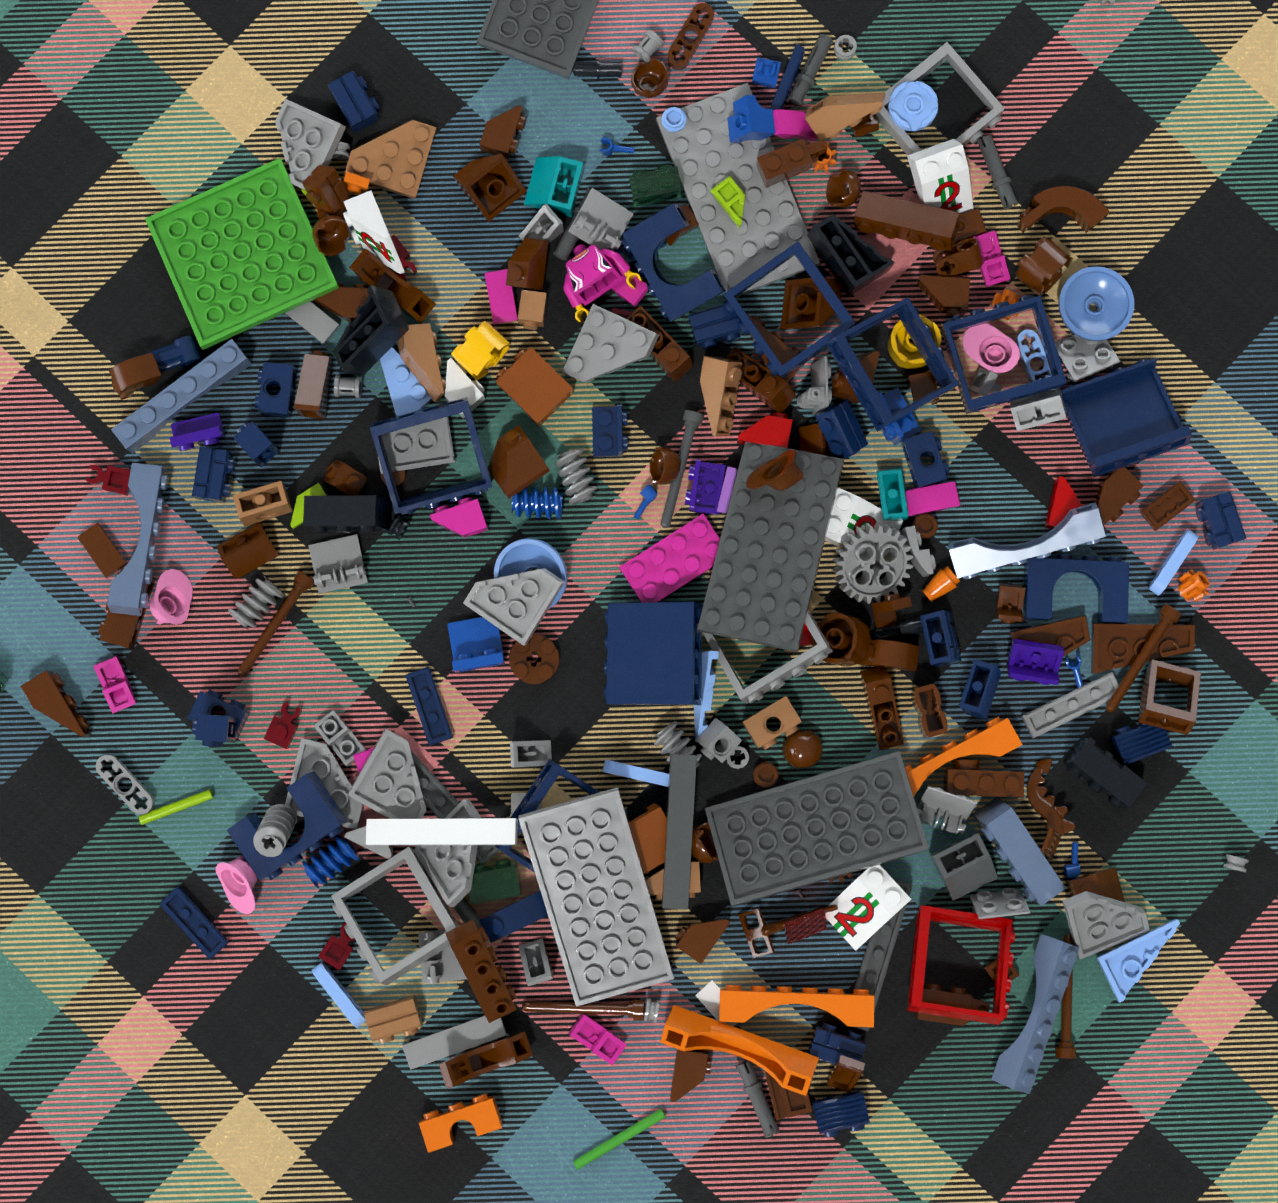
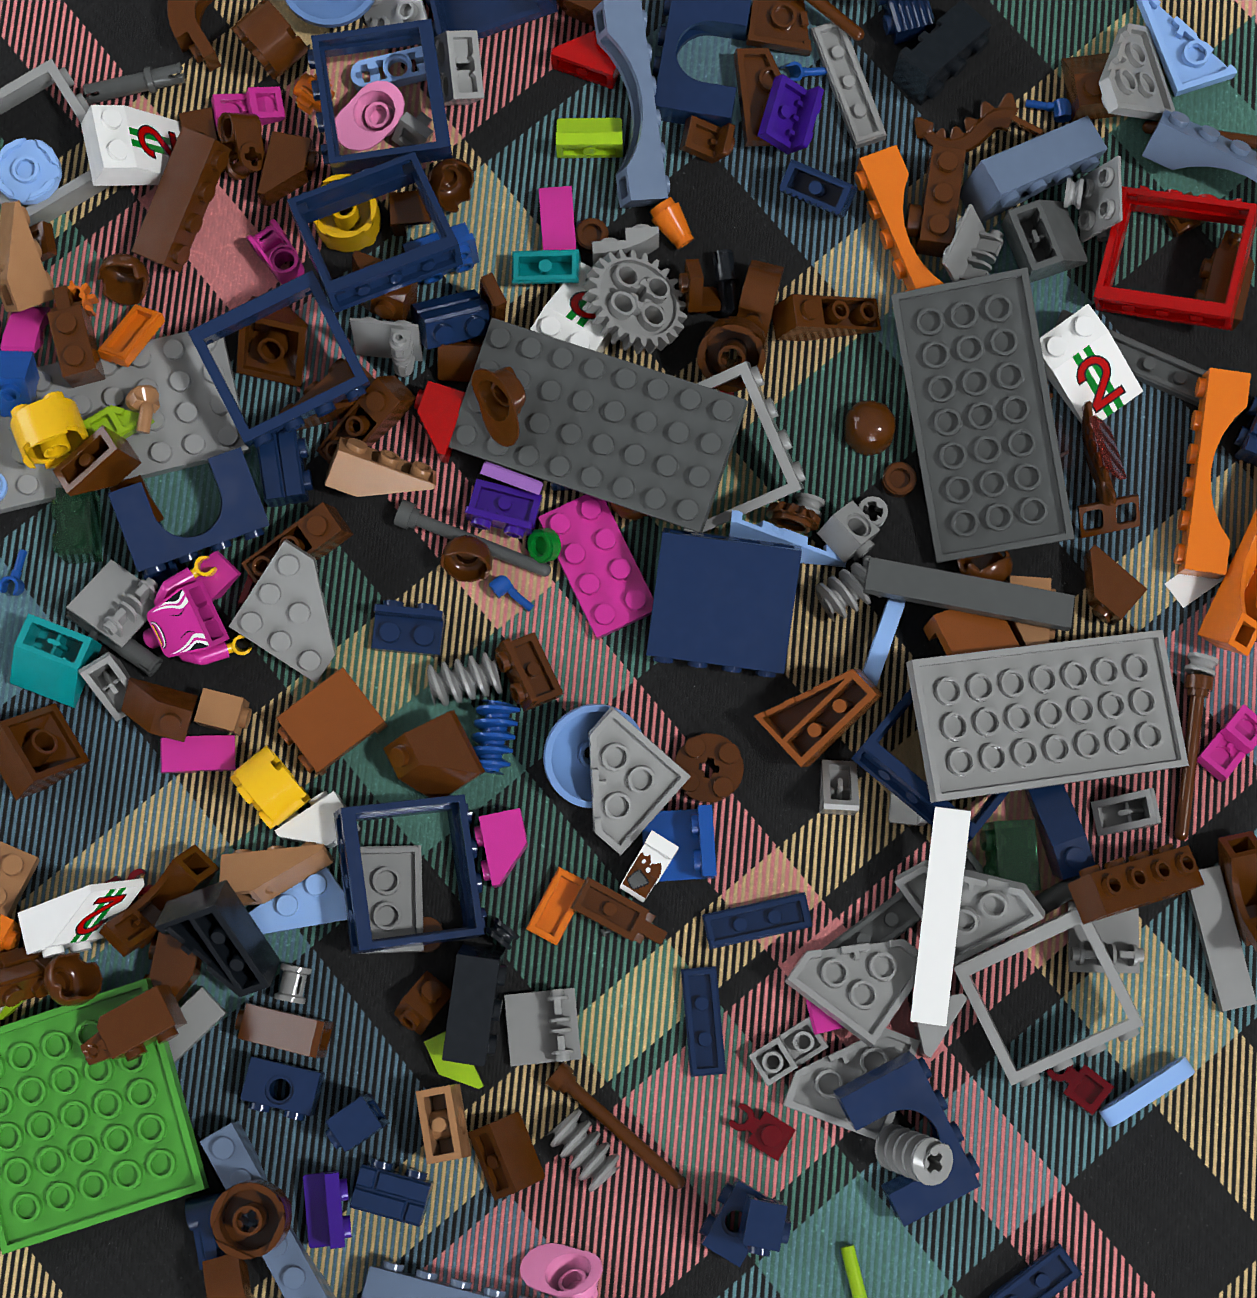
camera: 85 degrees left, 5 degrees down
(179, 367) = (232, 1228): none -> reddish brown brick
(238, 881) = (979, 1220): bright pink piece -> none
(302, 282) = (135, 1025): none -> reddish brown hinge
(330, 860) = (961, 1083): blue piece -> none
(354, 676) = (703, 1021): none -> dark blue tile
(393, 1018) = (1186, 1018): medium nougat brick -> none
(422, 605) = (616, 913): none -> reddish brown hinge
(423, 564) = (554, 908): none -> orange tile
(456, 623) = (648, 866): none -> leg
(576, 732) = (820, 716): none -> dark orange wedge
(587, 520) = (528, 671): none -> reddish brown bracket
(682, 520) = (544, 545): none -> green tile
(698, 192) = (97, 463): none -> reddish brown slope
(717, 154) = (47, 430): none -> yellow brick
(724, 698) = (793, 517): none -> reddish brown gear
(735, 709) = (810, 502): none -> light grey bush
(750, 219) = (146, 402): none -> medium nougat plate
(783, 712) = (831, 480): medium nougat brick -> none
(801, 201) = (131, 335): none -> orange tile
(847, 255) = (213, 284): black wedge -> none
(858, 458) = (493, 297): none -> reddish brown tile
(882, 293) = (275, 249): none -> dark pink piece
(921, 474) = (522, 231): dark blue brick -> none
(930, 718) = (830, 255): reddish brown brick -> none
(940, 638) = (745, 229): dark blue brick -> none
(947, 415) = (451, 183): none -> reddish brown hair
(1002, 514) = (589, 138): none -> lime panel
(1002, 883) = (1073, 193): none -> light grey bush

